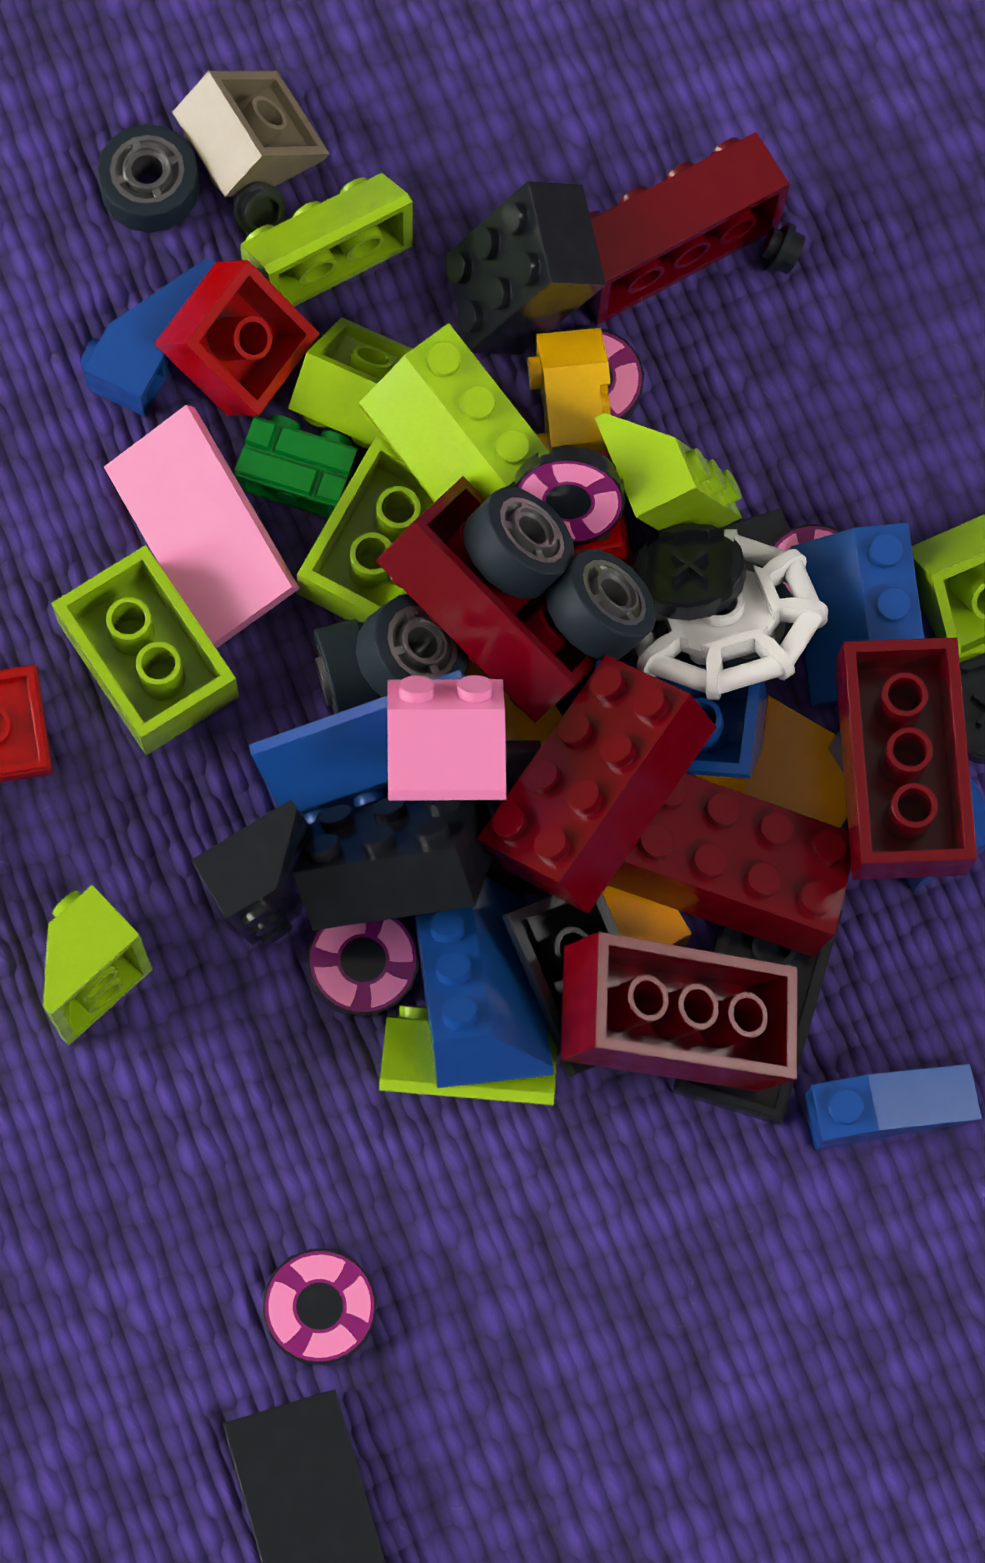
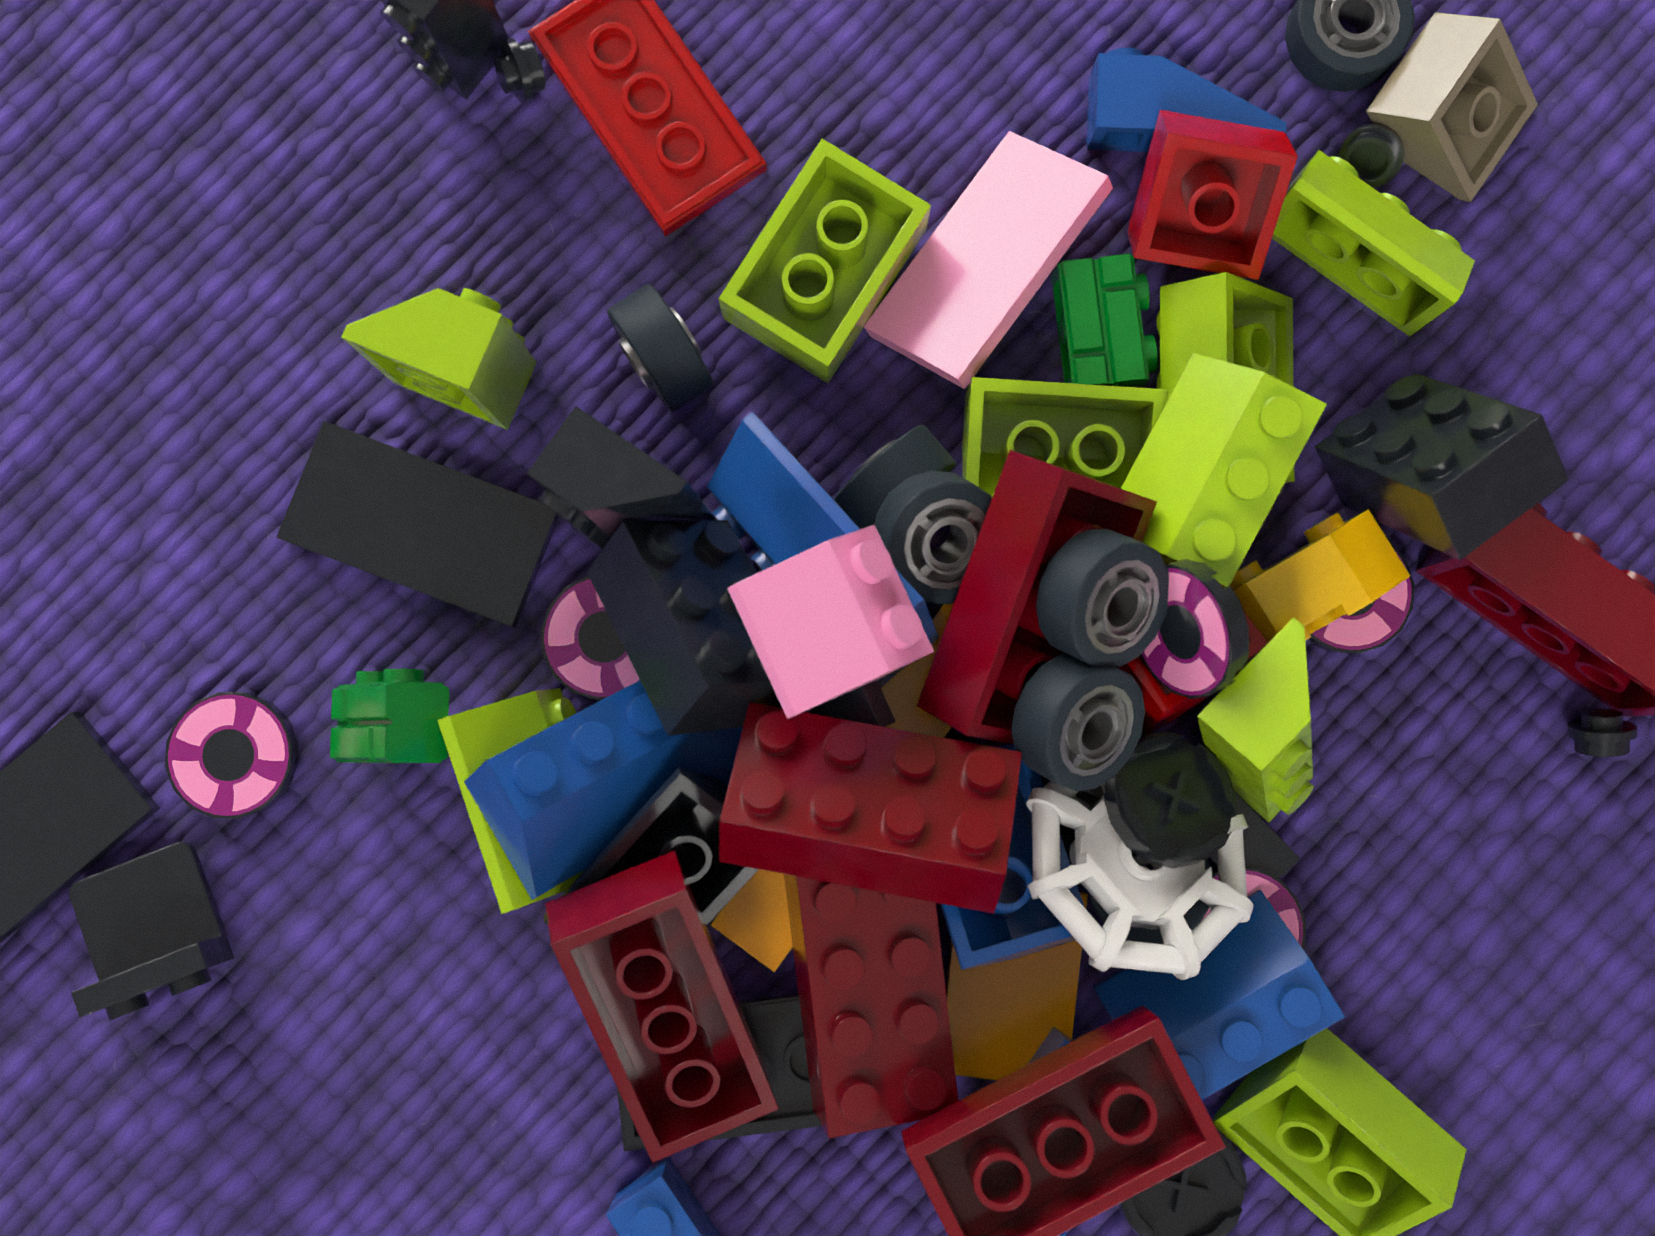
camera: 70 degrees right, 10 degrees up
(153, 806) = (660, 347): none -> black wheel
(199, 1071) = (419, 524): none -> black tile
(356, 1146) = (389, 718): none -> green brick
(433, 1432) = (147, 929): none -> black bracket

